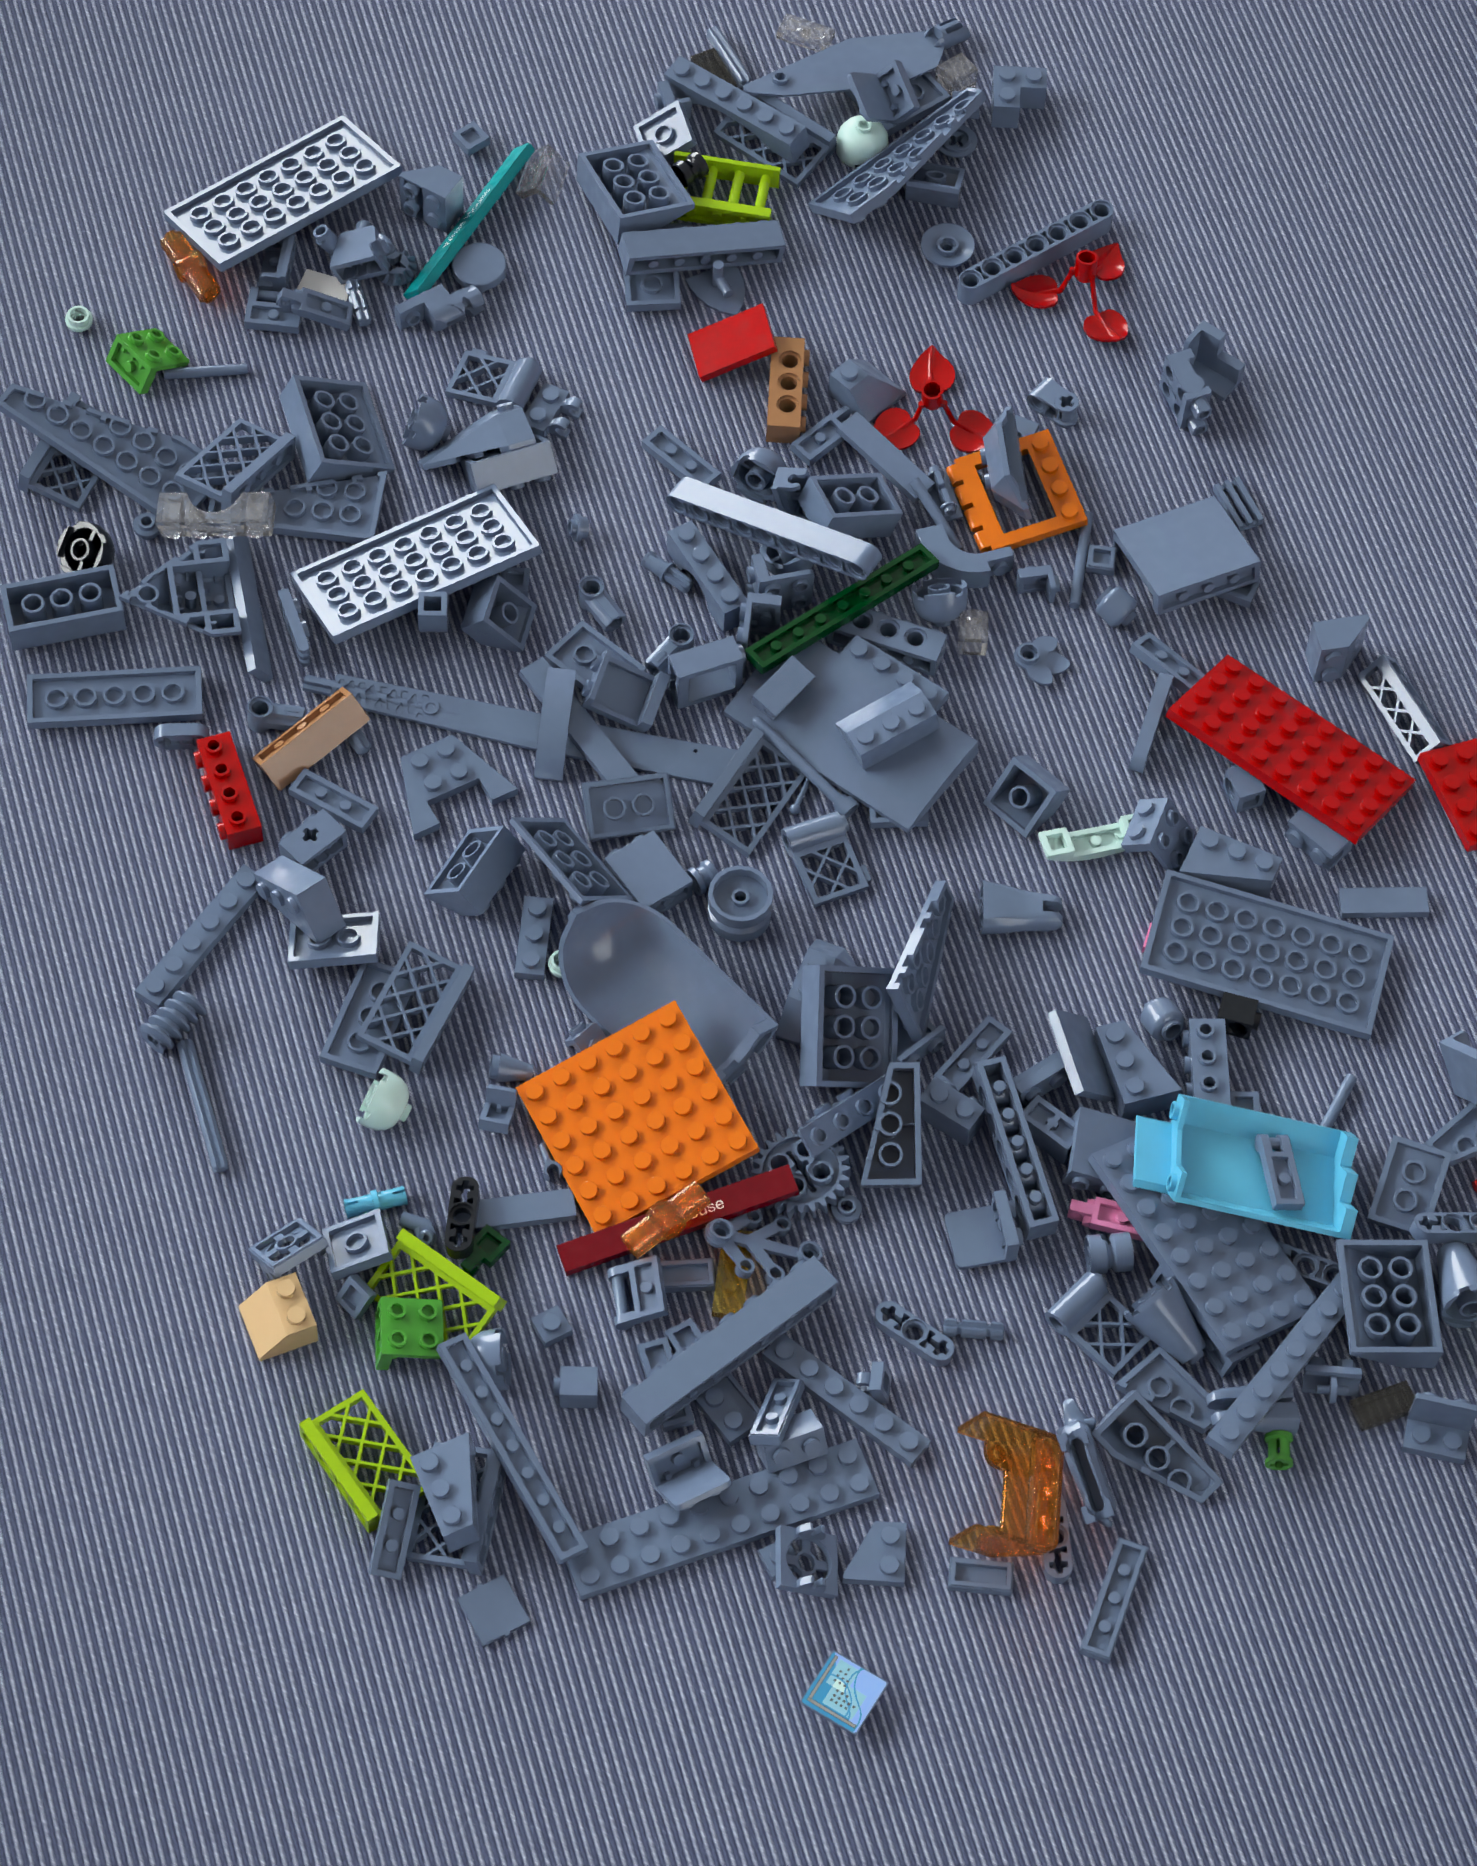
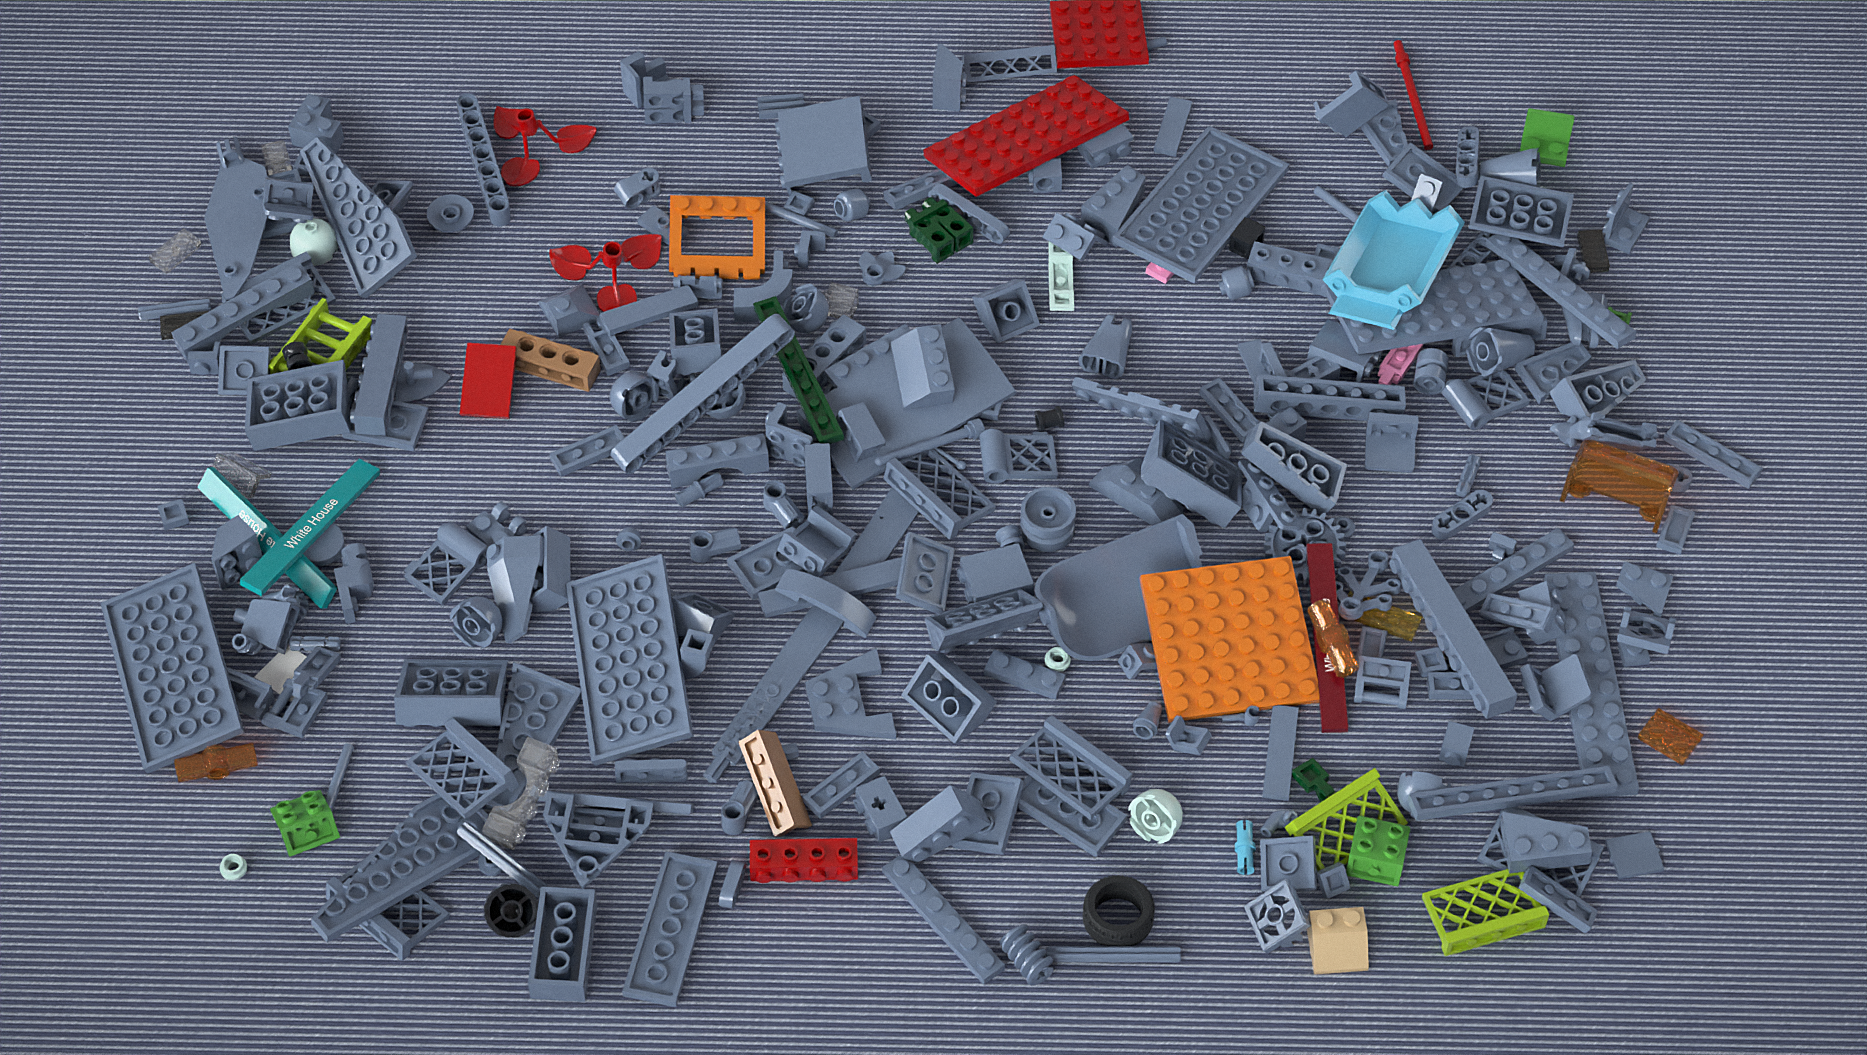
camera: 70 degrees left, 5 degrees down
(144, 529) = (500, 858): none -> sand blue axle
(250, 1067) = (1118, 888): none -> black tyre
(467, 1228) = (1290, 793): black beam -> none
(487, 248) = (309, 527): none -> teal tile
(551, 1326) = (1392, 752): sand blue plate -> none
(670, 1621) = (1670, 736): none -> clear orange plate
(794, 587) = (750, 419): sand blue bracket -> none
(844, 1693) = (1759, 636): piece -> none
(887, 875) = (1049, 419): none -> black bush
(934, 511) = (709, 293): sand blue bar -> none
(1005, 465) = (698, 228): sand blue wedge -> none
(1081, 1055) = (1262, 335): sand blue tile -> none
(1116, 700) = (939, 229): none -> dark green hips
(1134, 1073) = (1277, 314): sand blue wedge -> none
(1280, 1172) = (1397, 244): sand blue plate -> none
(1376, 1189) = (1428, 190): none -> plate

